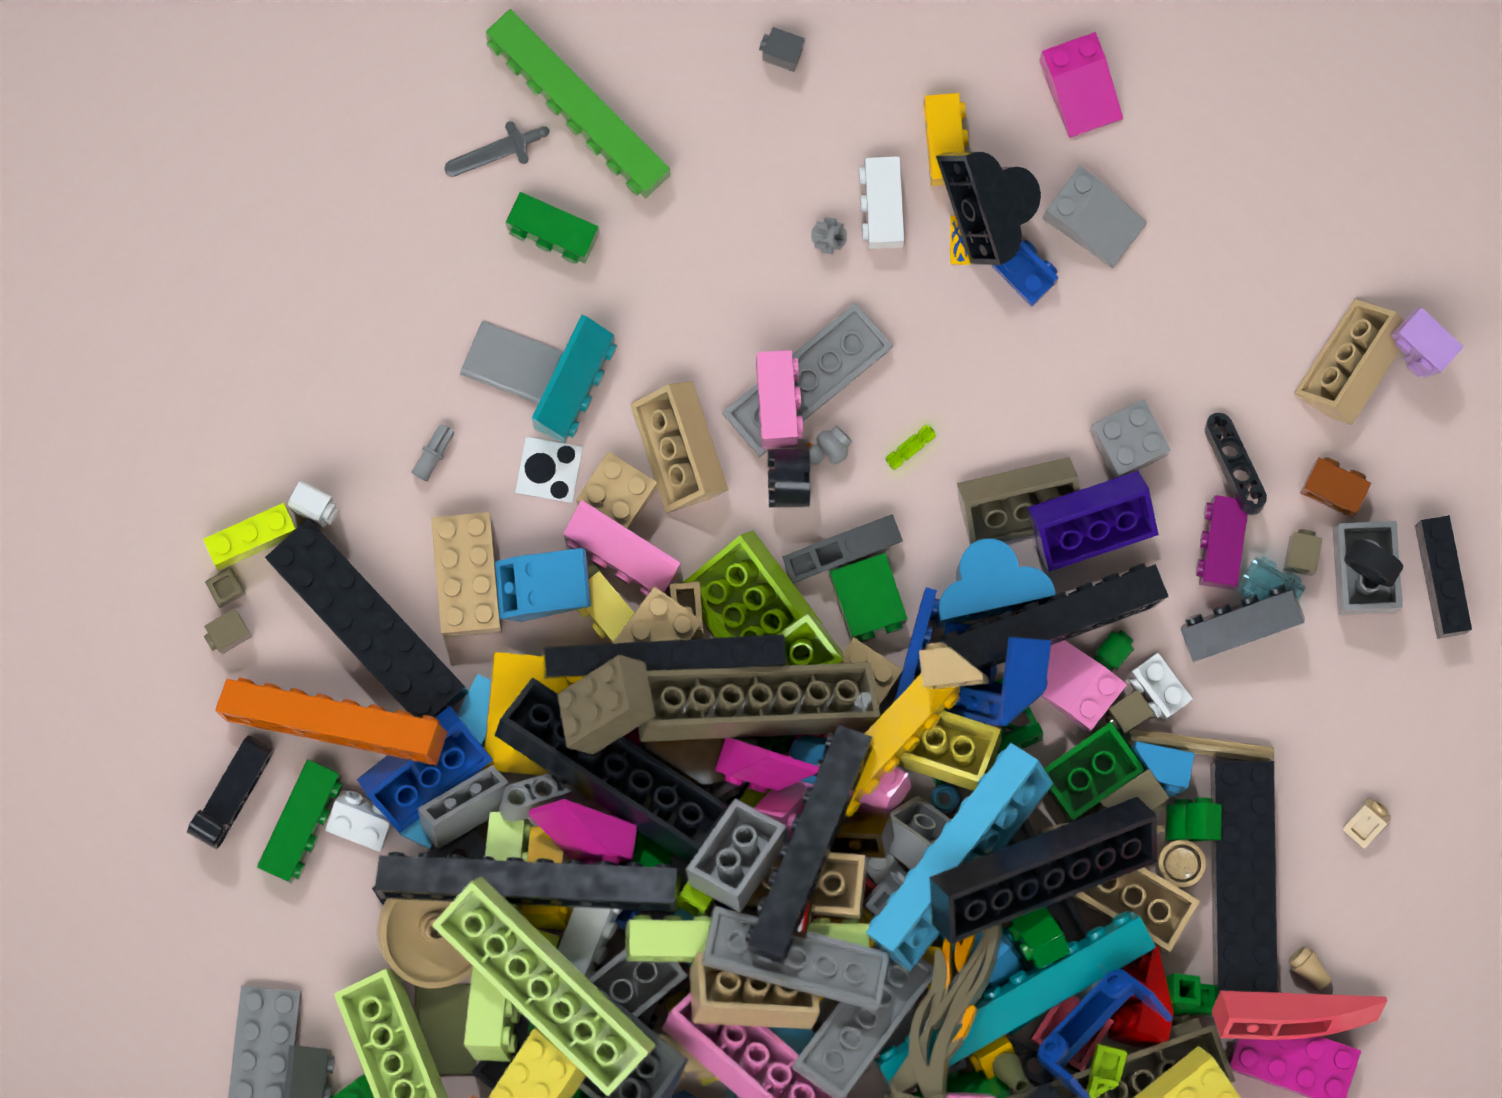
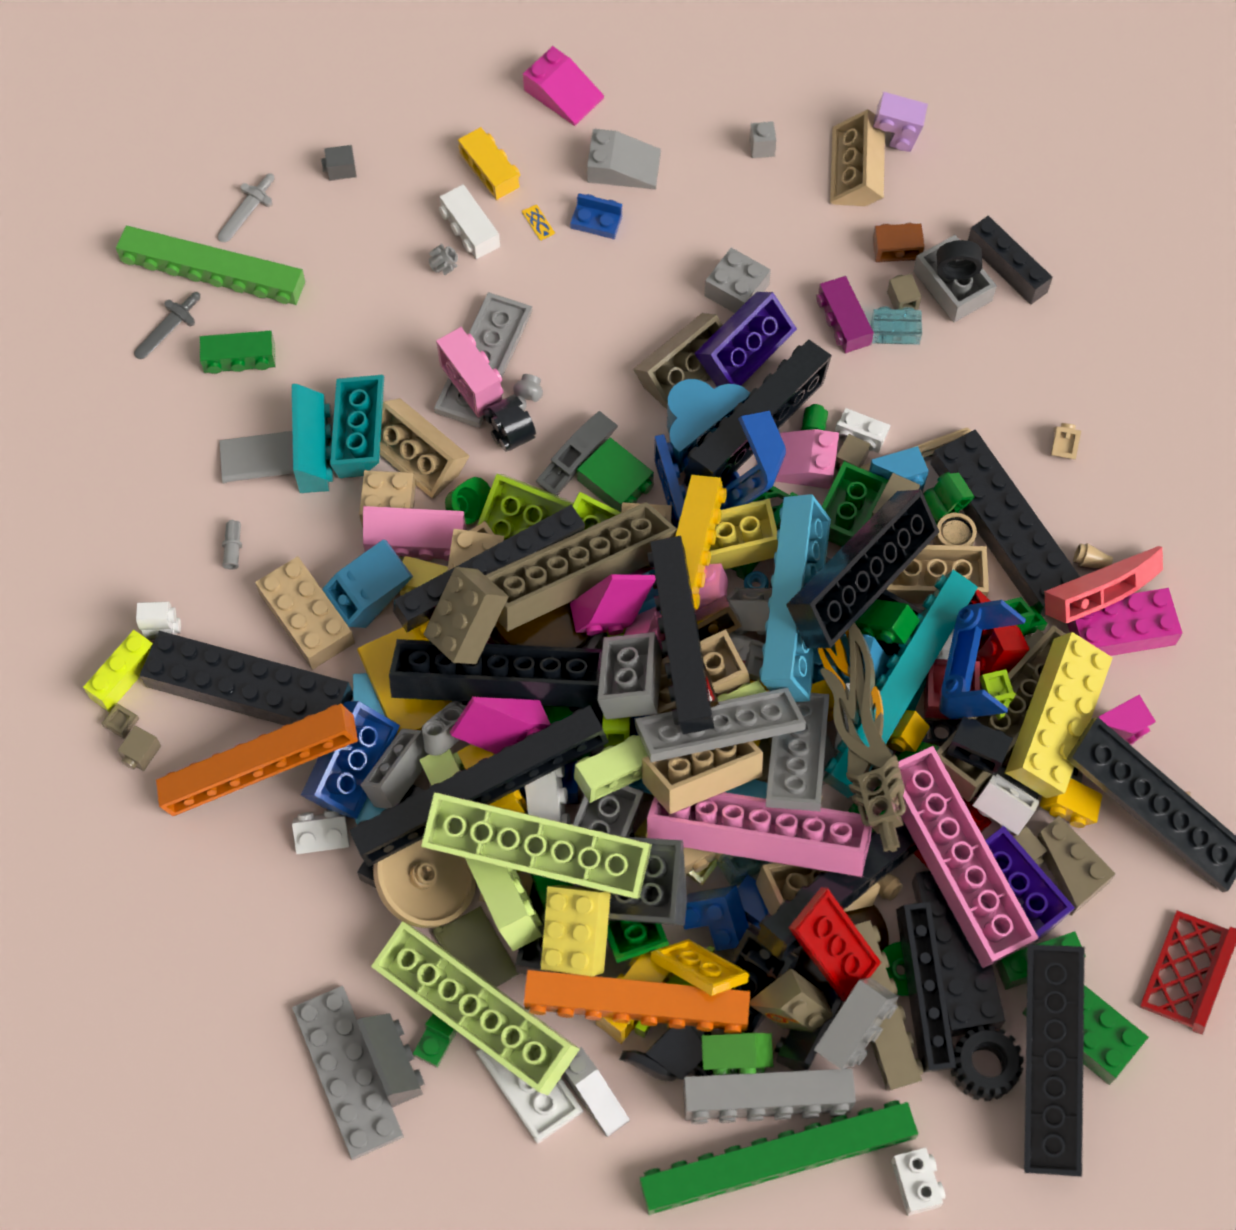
camera: 25 degrees left, 15 degrees down
(231, 793) = (203, 889): black beam -> none
(299, 822) = (272, 857): green brick -> none
(549, 469) = (327, 514): white sticker -> none
(629, 391) = (357, 425): none -> teal slope
(669, 39) = (255, 195): none -> light grey sword
(698, 542) = (469, 497): none -> green piece
(910, 447) = (584, 366): clear neon green axle -> none
(947, 668) = (709, 461): tan slope -> none
(989, 203) = (542, 176): black brick -> none
(1009, 1070) = (928, 731): olive cone -> none
(1238, 462) = (842, 270): black beam -> none
(1242, 623) = (893, 353): brick -> none
(1263, 277) = (762, 139): none -> light grey brick

